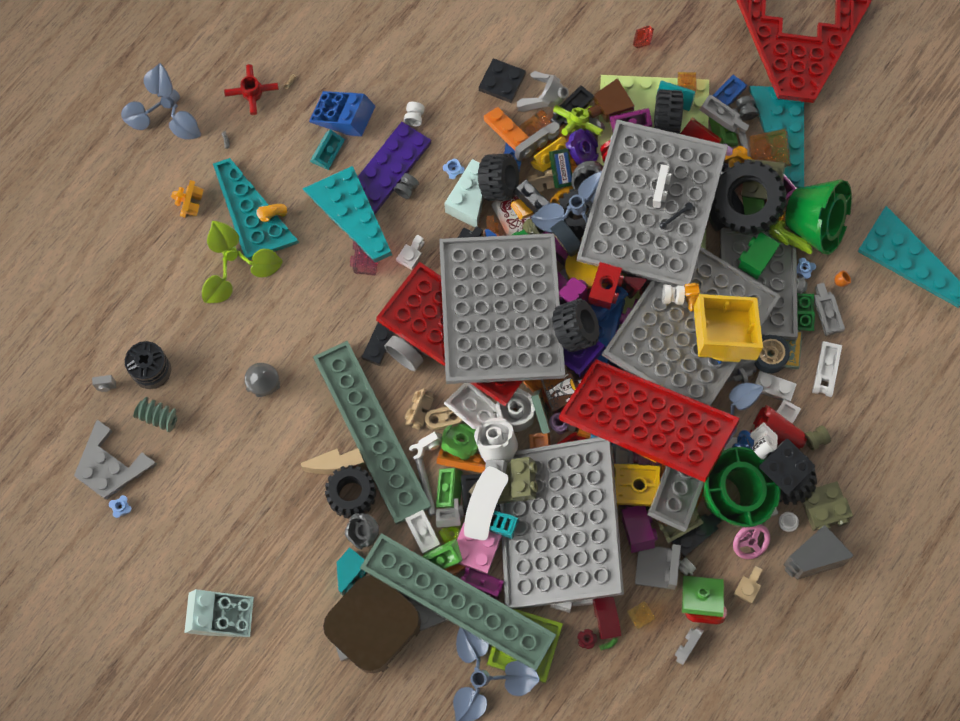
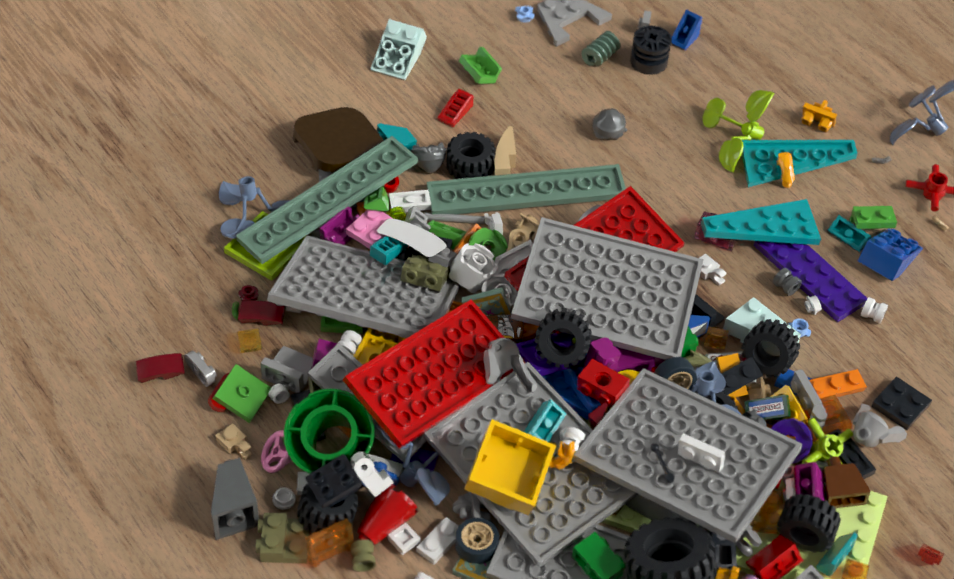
camera: 100 degrees right, 20 degrees down
(105, 341) = (687, 30): none -> blue slope
(218, 523) = (481, 66): none -> bright green bracket
(276, 521) = (461, 98): none -> red slope
(309, 129) = (873, 217): none -> bright green bracket
(423, 162) = (812, 304): none -> white plate
(614, 374) = (503, 356): none -> light grey piece
(631, 514) = (350, 341): none -> white wheel
(659, 323) = (546, 421): none -> teal slope
(702, 681) = (158, 366): none -> dark red slope
(824, 463) = (329, 542): none -> clear orange plate

